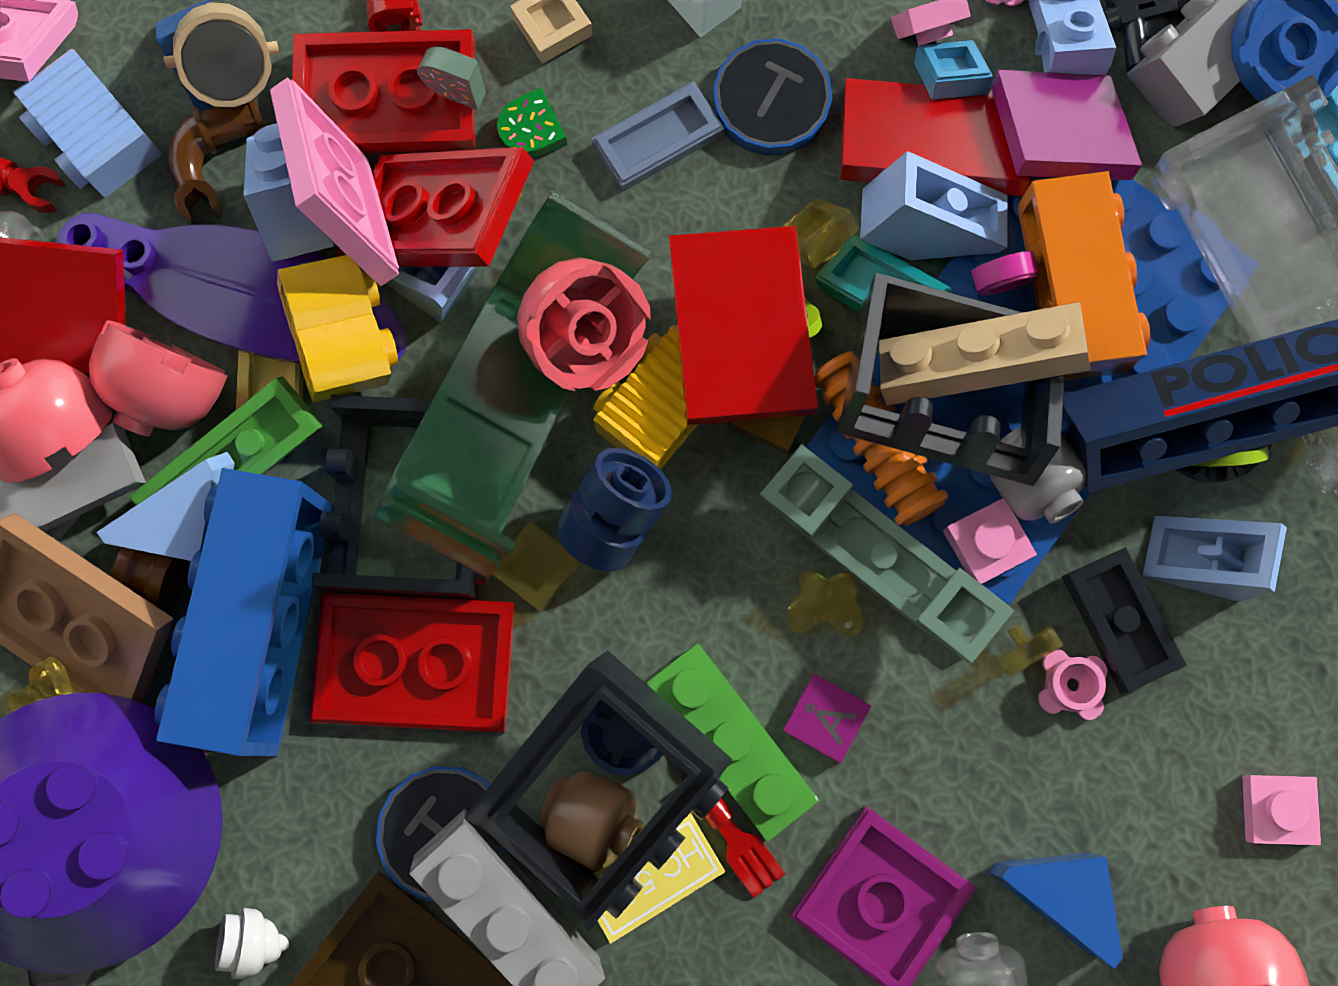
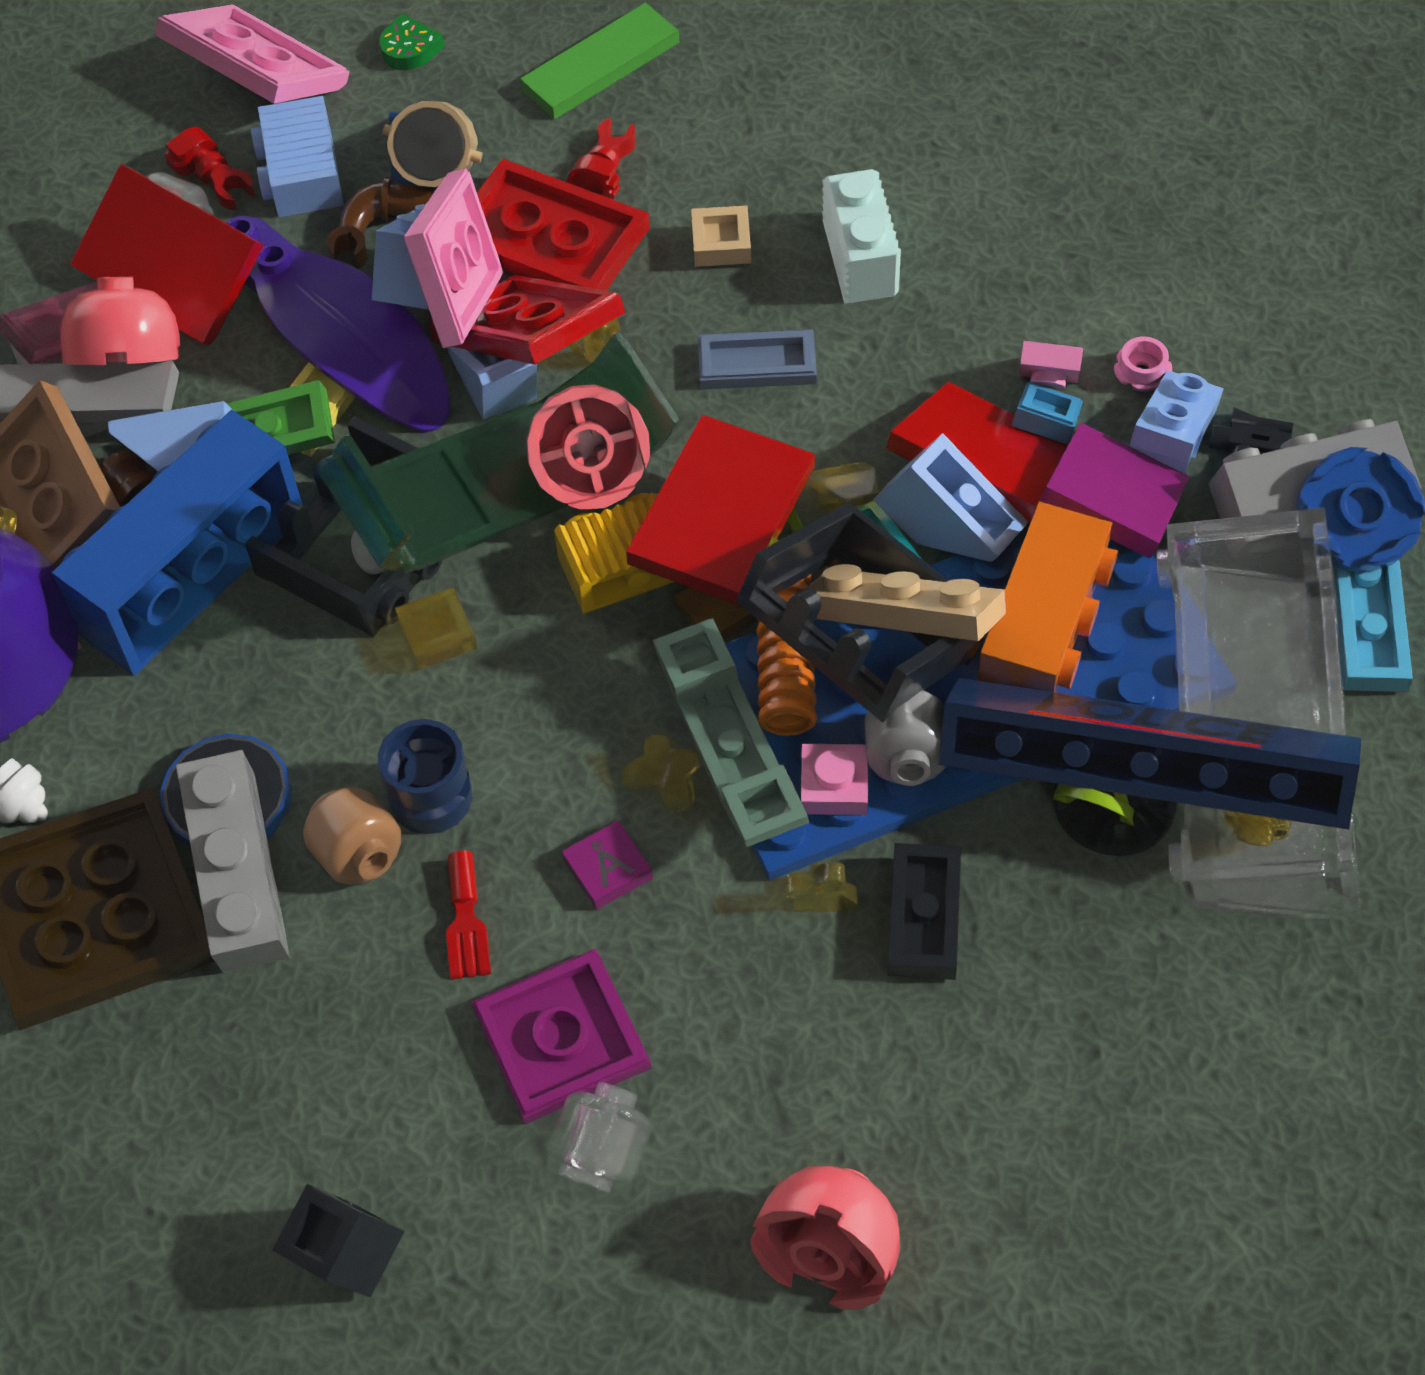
camera: 30 degrees right, 20 degrees down
(151, 381) = (223, 348): coral cylinder -> none
(335, 327) = (389, 369): yellow brick -> none
(413, 662) = (289, 657): red tile -> none
(452, 76) = (605, 234): sand green tile -> none
(531, 125) = (653, 307): green tile -> none
(613, 509) = (525, 602): dark blue wheel -> none
(658, 722) = (396, 839): black window -> none
(681, 875) = (373, 914): light yellow tile -> none
(759, 773) = (513, 844): bright green plate -> none
(772, 96) = (875, 370): black tile -> none
(1006, 273) = (981, 565): dark pink tile -> none
(1072, 896) = (726, 1099): blue slope -> none
(1089, 674) = (847, 926): bright pink plate -> none
(1216, 555) = (1042, 895): light blue slope -> none
(1281, 810) = (977, 1144): bright pink plate -> none

